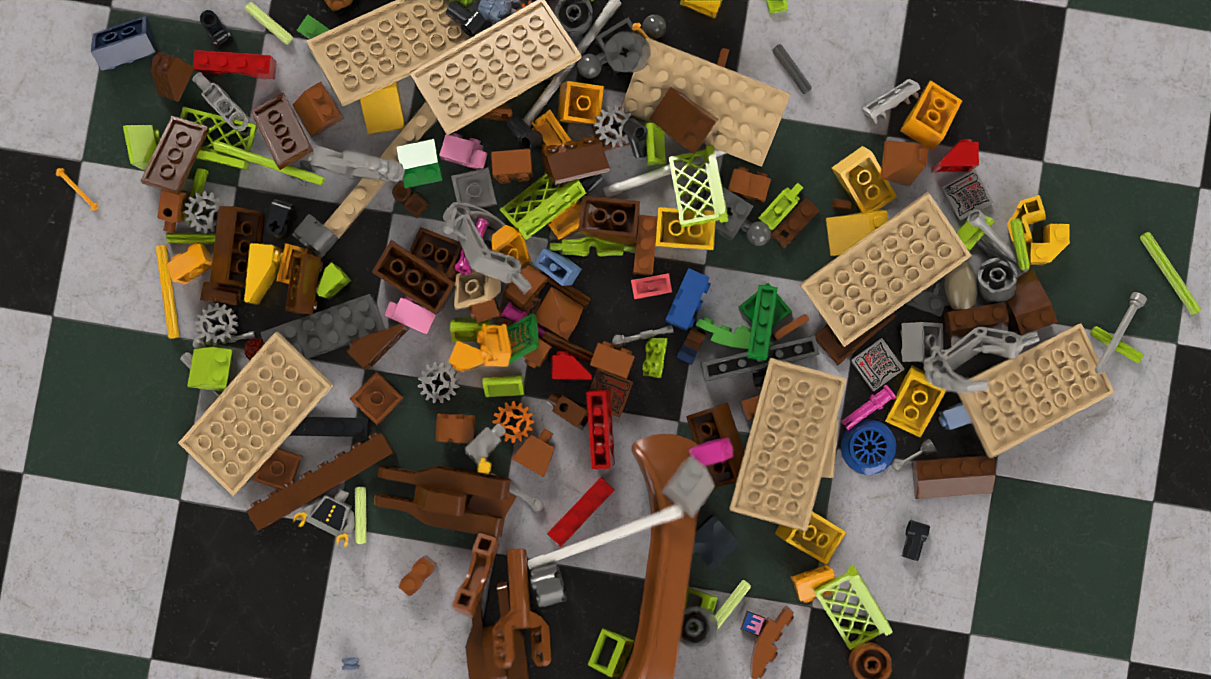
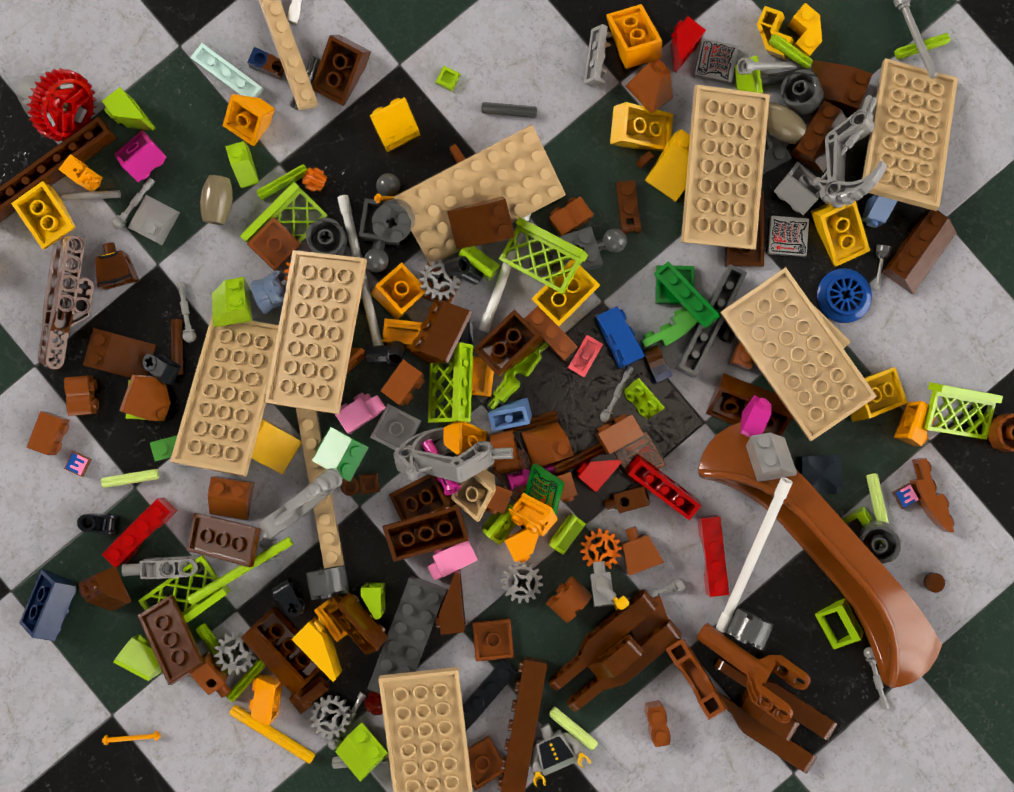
camera: 55 degrees left, 0 degrees up
(469, 21) = (262, 322): black piece -> none
(780, 206) = (607, 206): lime hinge -> none
(790, 327) = (705, 276): dark orange tile -> none
(875, 402) = (816, 261): dark pink pin -> none
(916, 535) = (942, 317): black piece -> none

